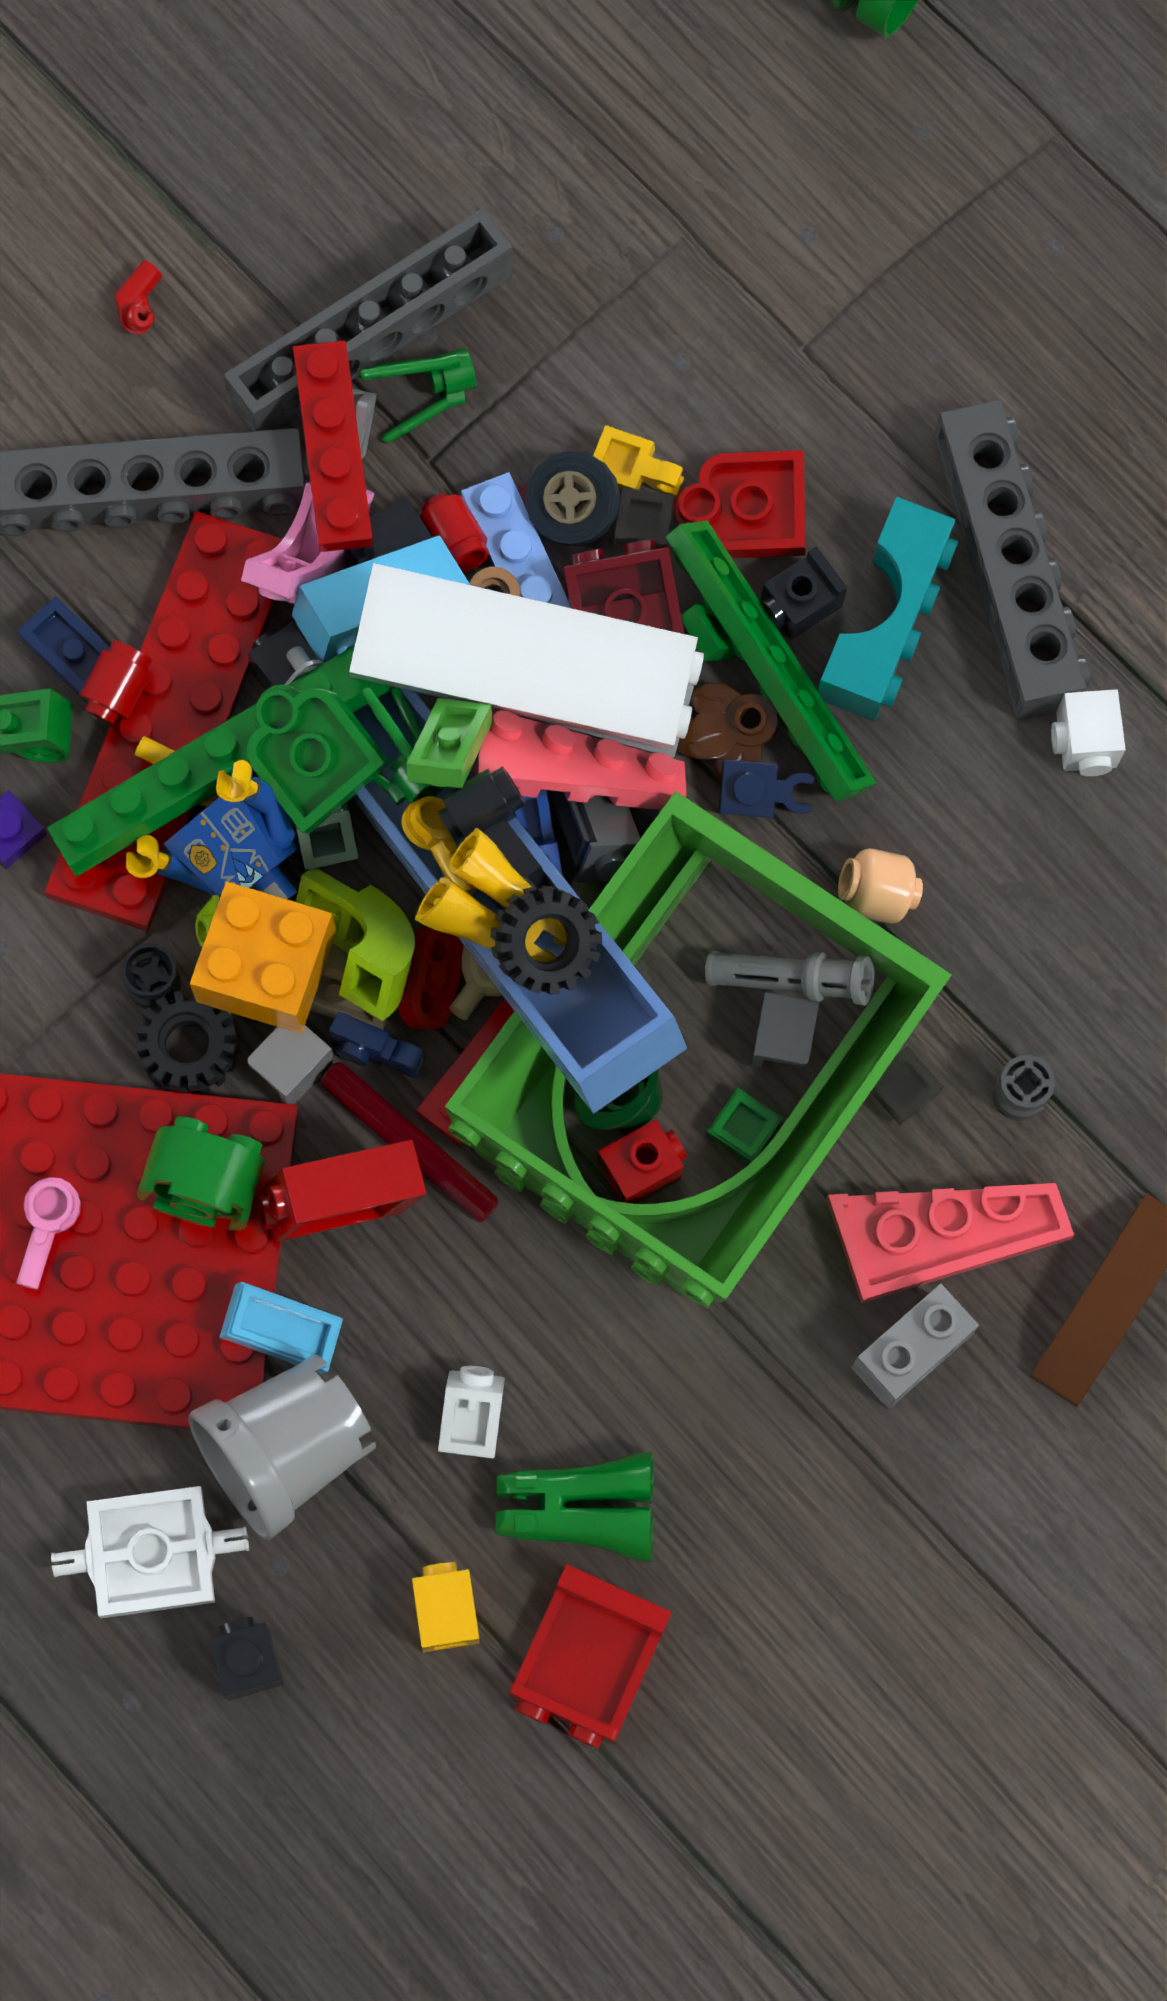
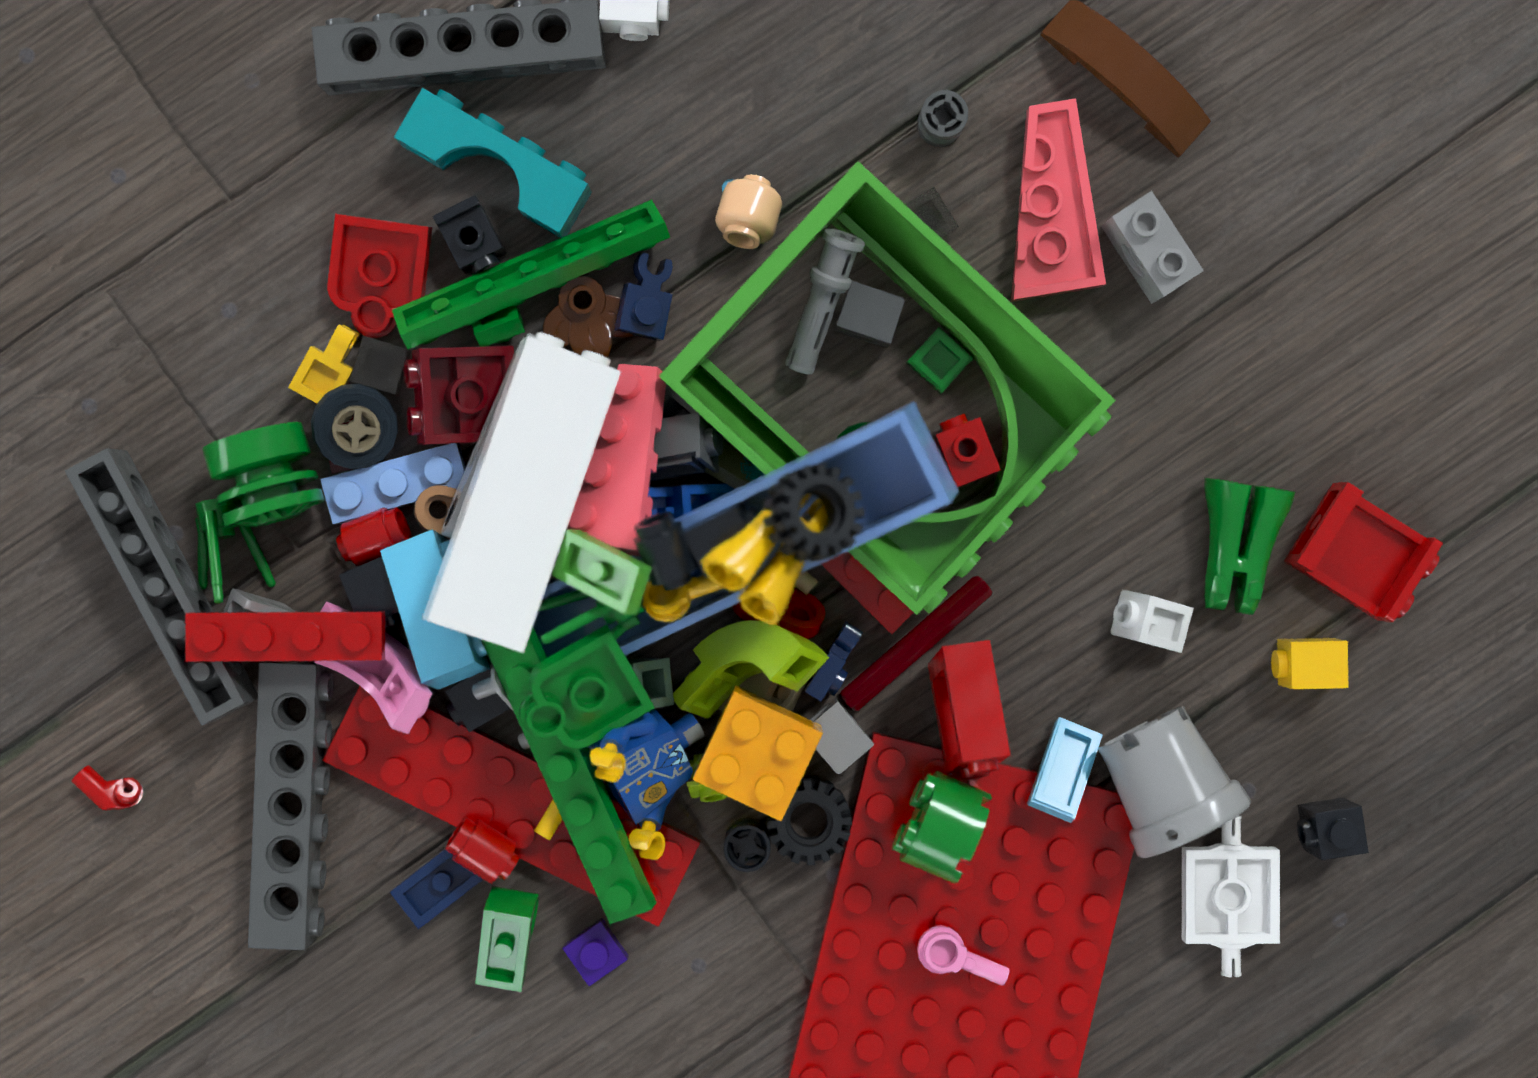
camera: 80 degrees left, 15 degrees up
(496, 411) = (263, 474): none -> green wheel

